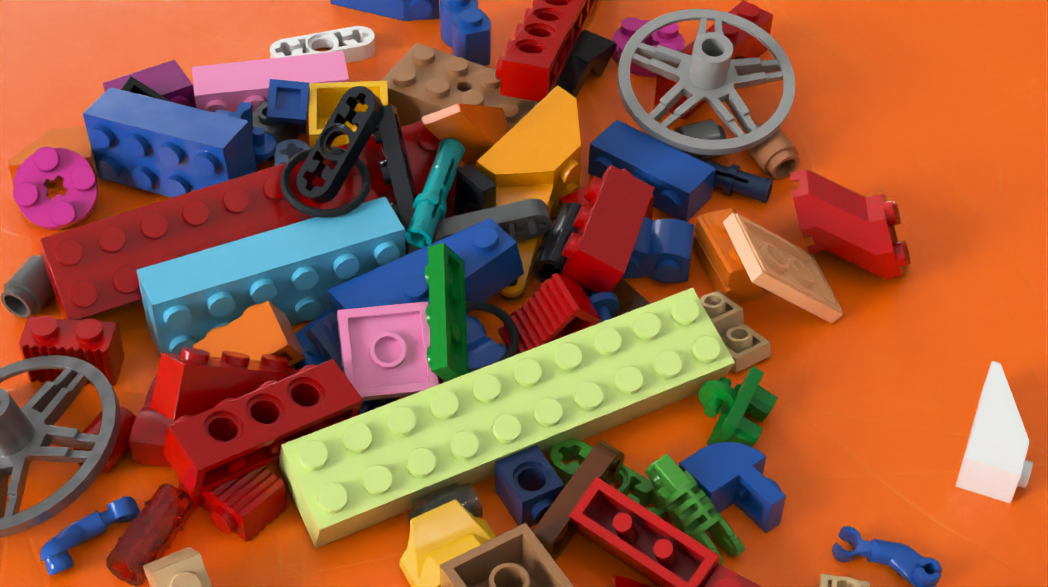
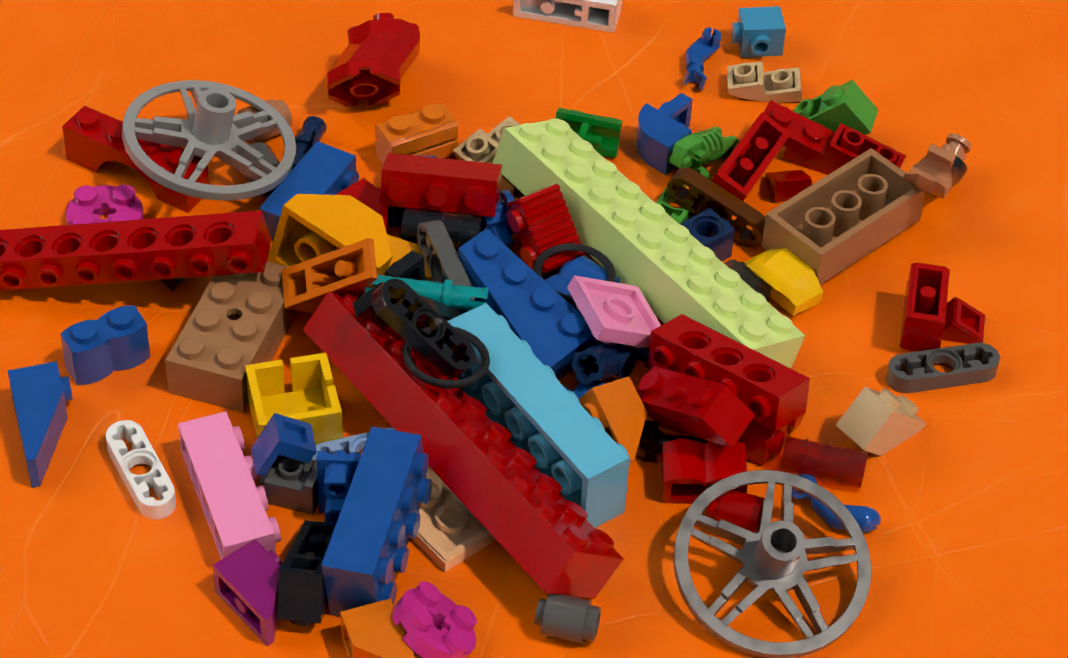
camera: 100 degrees left, 0 degrees up
(84, 339) = (647, 560): red brick -> none
(446, 313) = (557, 260): green plate -> none
(782, 268) = (443, 94): light nougat tile -> none

